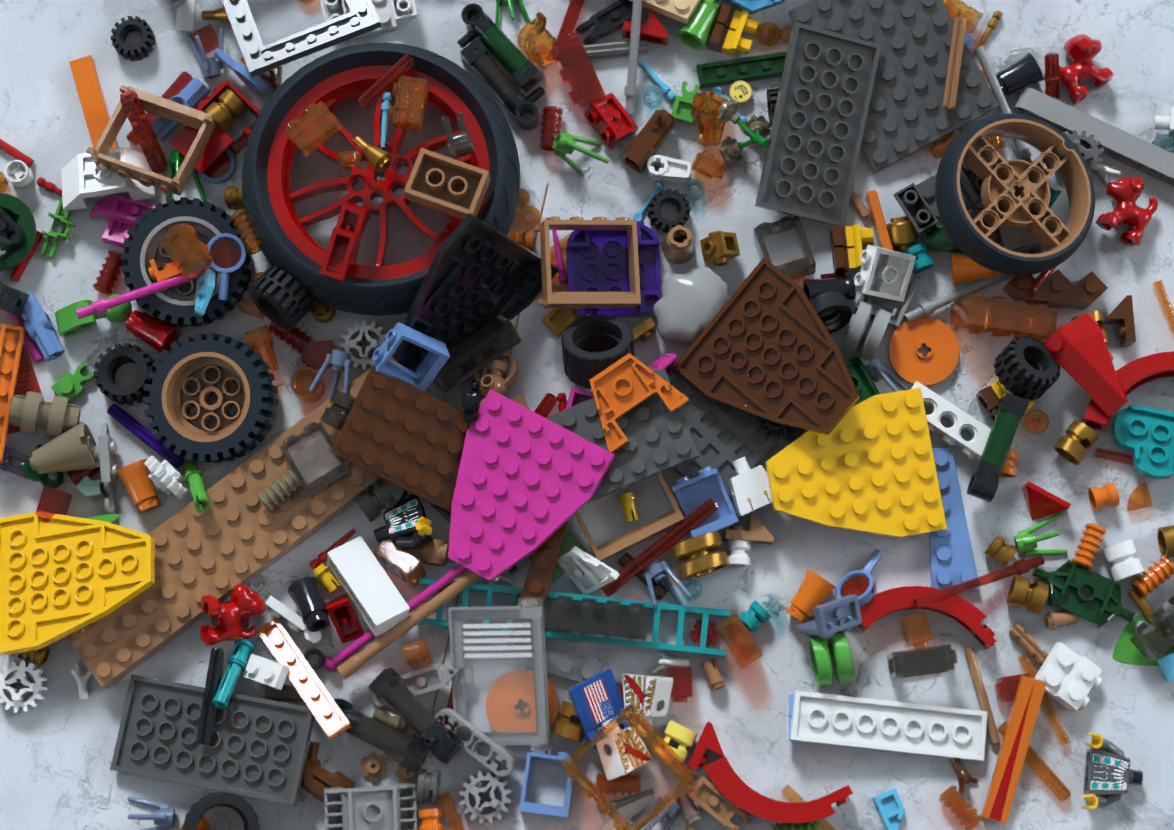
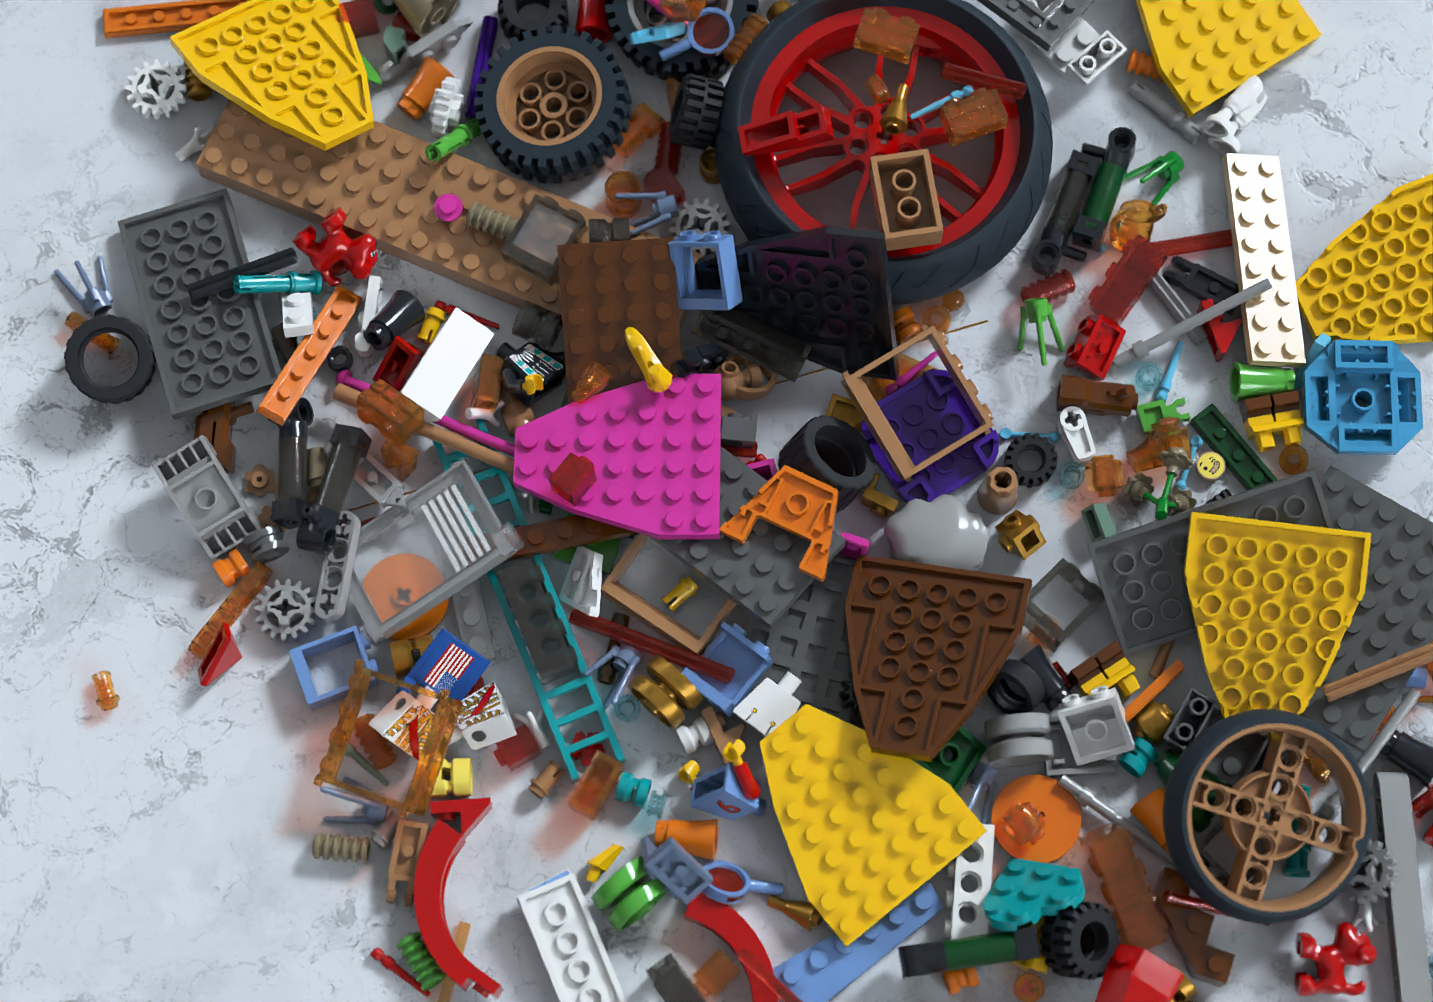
camera: 55 degrees right, 5 degrees down
(249, 516) = (448, 207): none -> dark pink plate
(385, 642) = (390, 412): none -> clear orange brick
(417, 579) = (479, 413): none -> white bar
(445, 484) = (591, 382): none -> clear orange cone
(459, 144) = (962, 192): clear smoke piece -> none
(469, 435) = (656, 376): none -> yellow piece
(515, 534) = (573, 478): none -> clear red brick
(536, 399) = (738, 430): none -> dark grey brick
(740, 185) = (1102, 518): none -> sand green piece
(792, 666) = (602, 862): none -> yellow bar
(793, 552) = (726, 790): none -> medium blue torso
(871, 108) = (1271, 606): none -> yellow wing
(903, 547) = (799, 911): none -> pearl gold cone
(925, 360) = (1023, 823): none -> clear orange head
(978, 382) = (1030, 891): none -> teal plate

